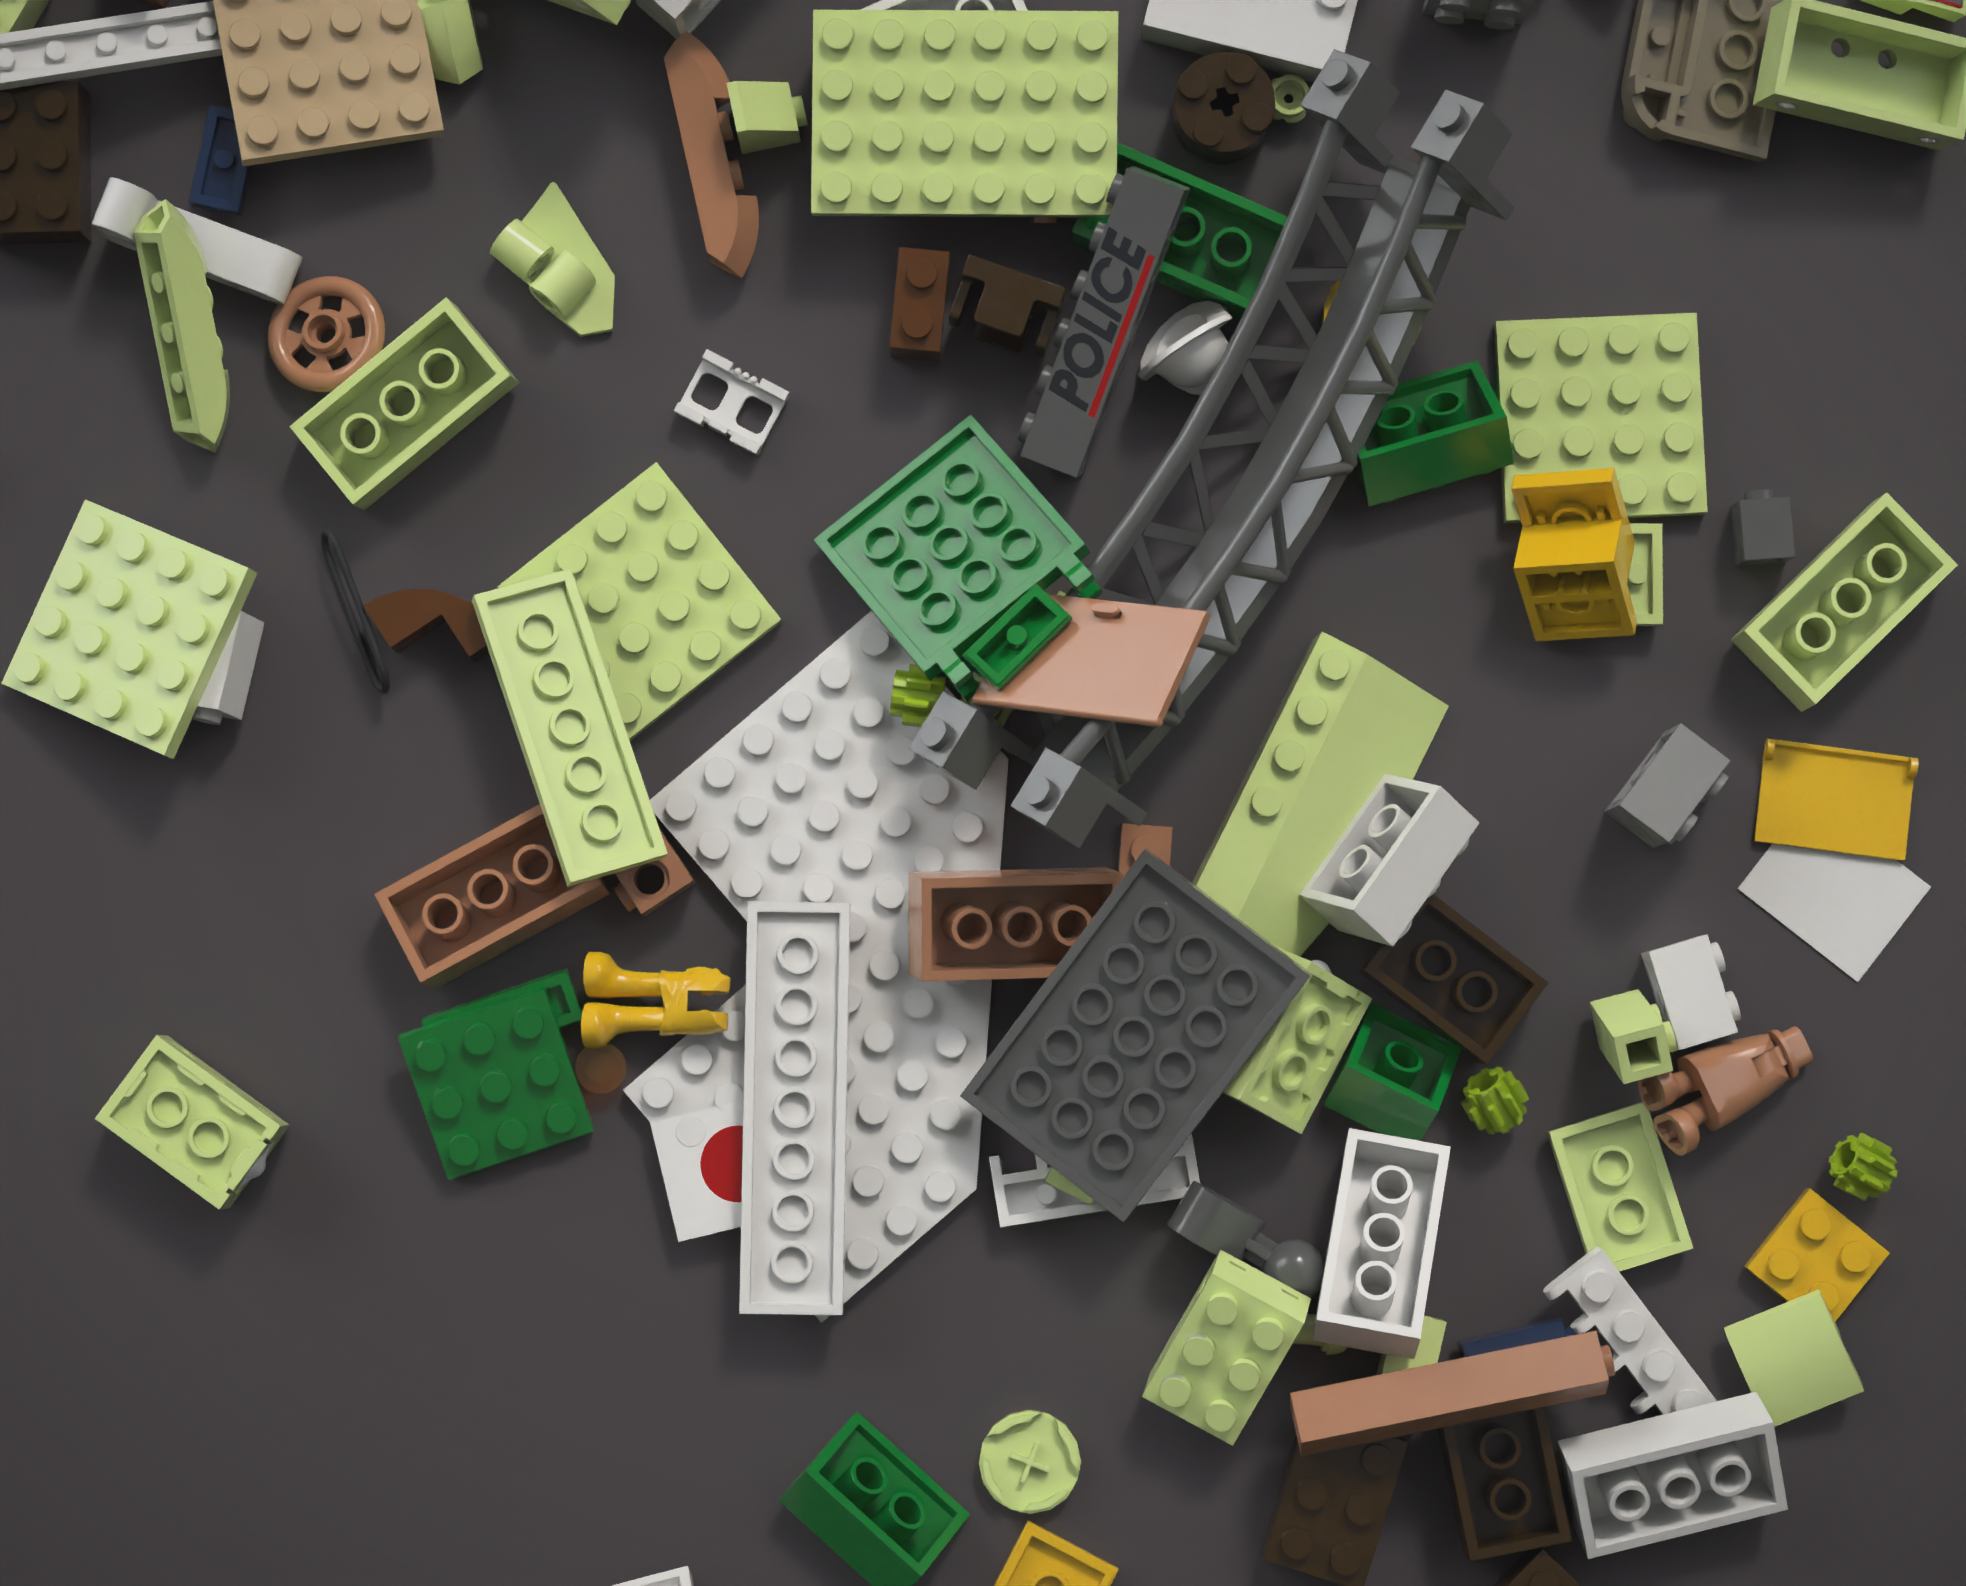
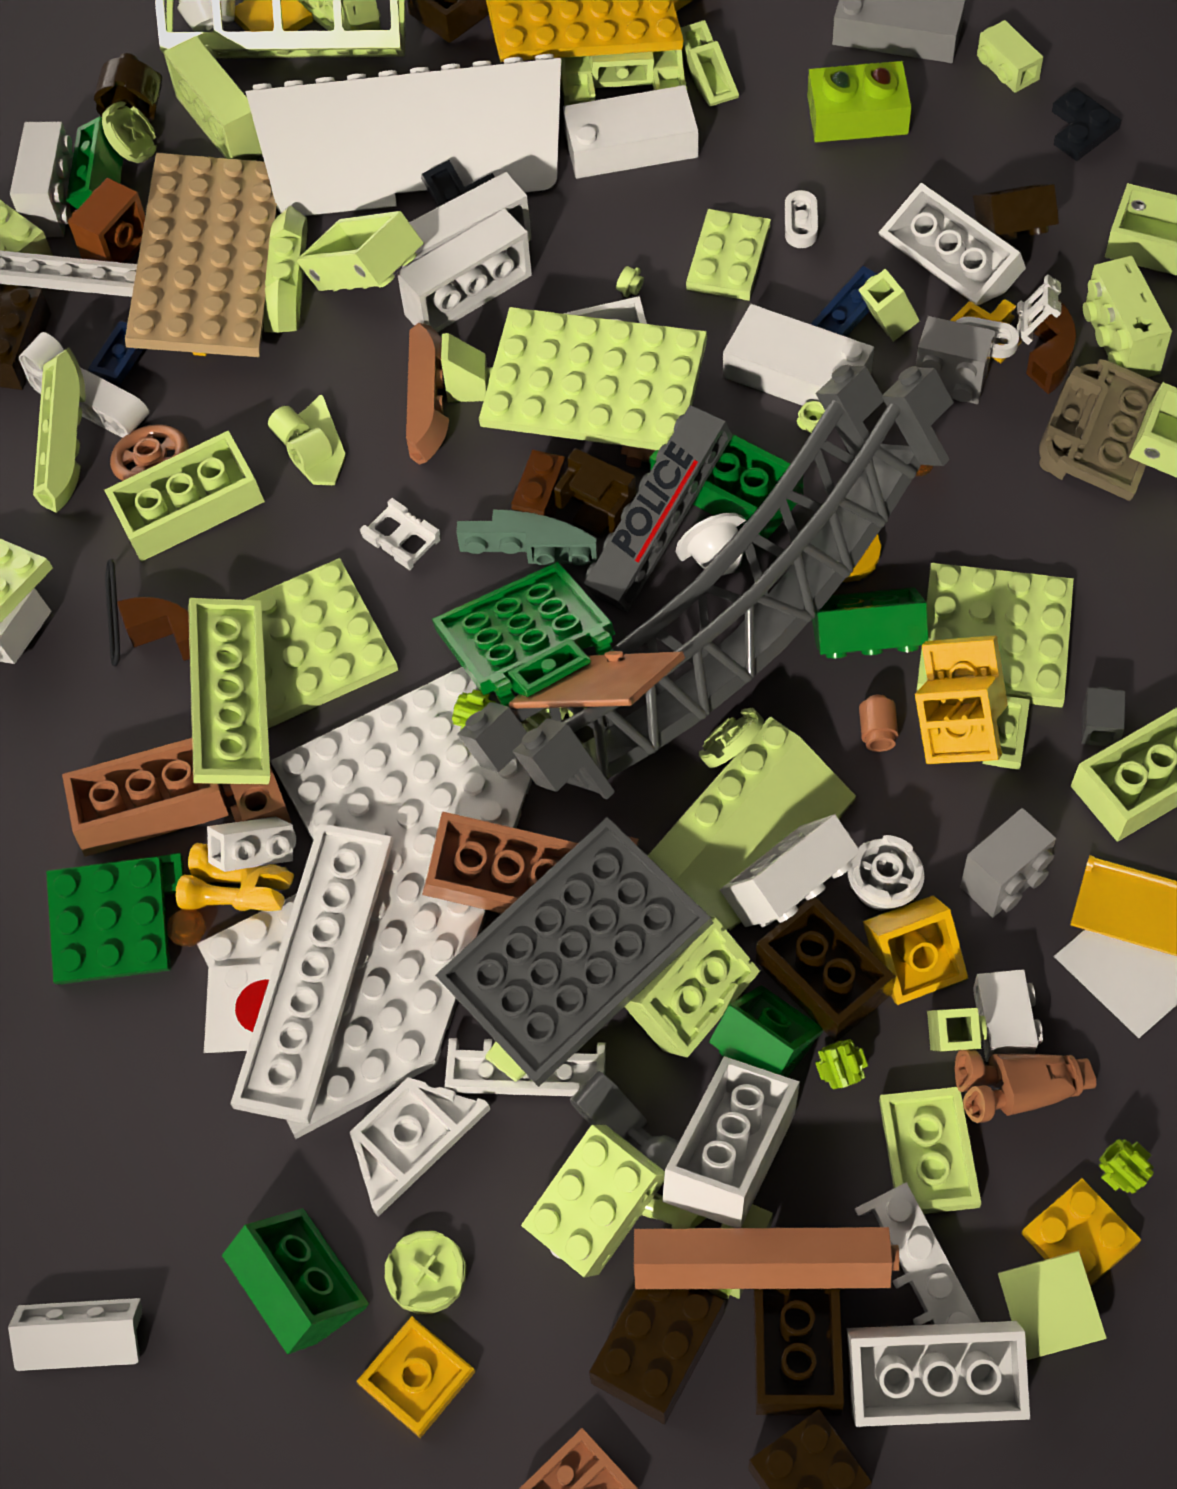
camera: 20 degrees right, 25 degrees down
(661, 946) = (250, 843): none -> white brick
(942, 380) = (540, 536): none -> sand green slope
(969, 1296) = (409, 1135): none -> white wing
(1236, 82) = (767, 411): dark brown brick -> none
(1272, 663) = (731, 738): none -> yellowish green tile
(1463, 594) = (878, 723): none -> nougat brick
(1515, 830) = (886, 873): none -> white cone
(1563, 919) = (917, 947): none -> yellow slope

